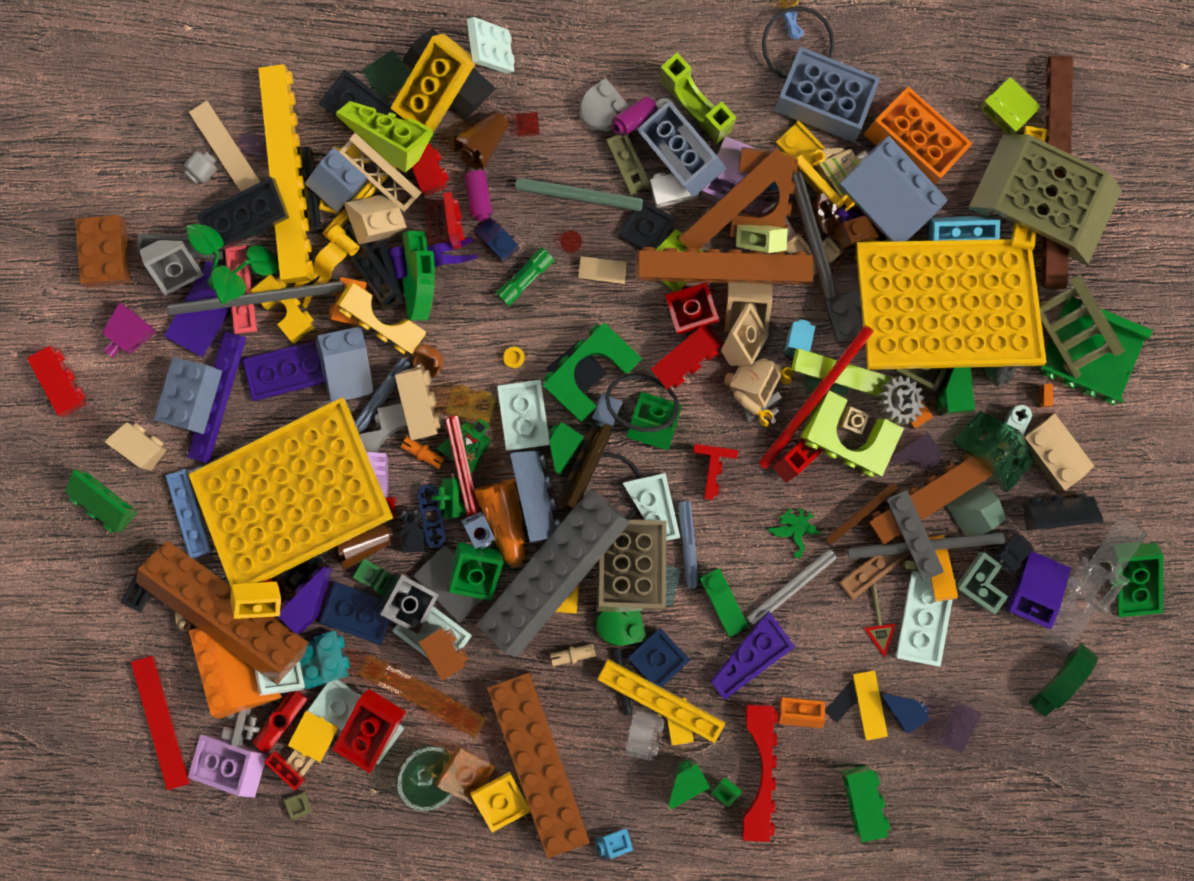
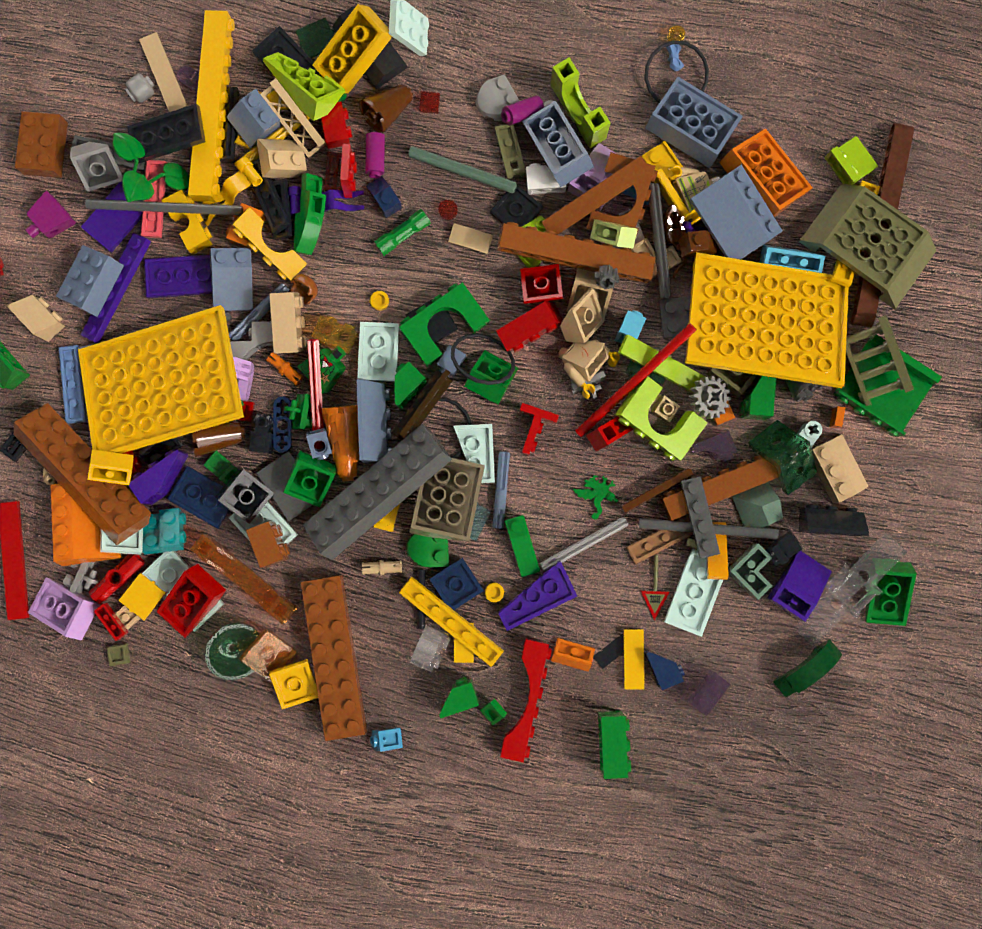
camera: 10 degrees right, 0 degrees up
(702, 659) = (494, 592): none -> yellow tile
(763, 288) = (606, 277): none -> dark grey gear

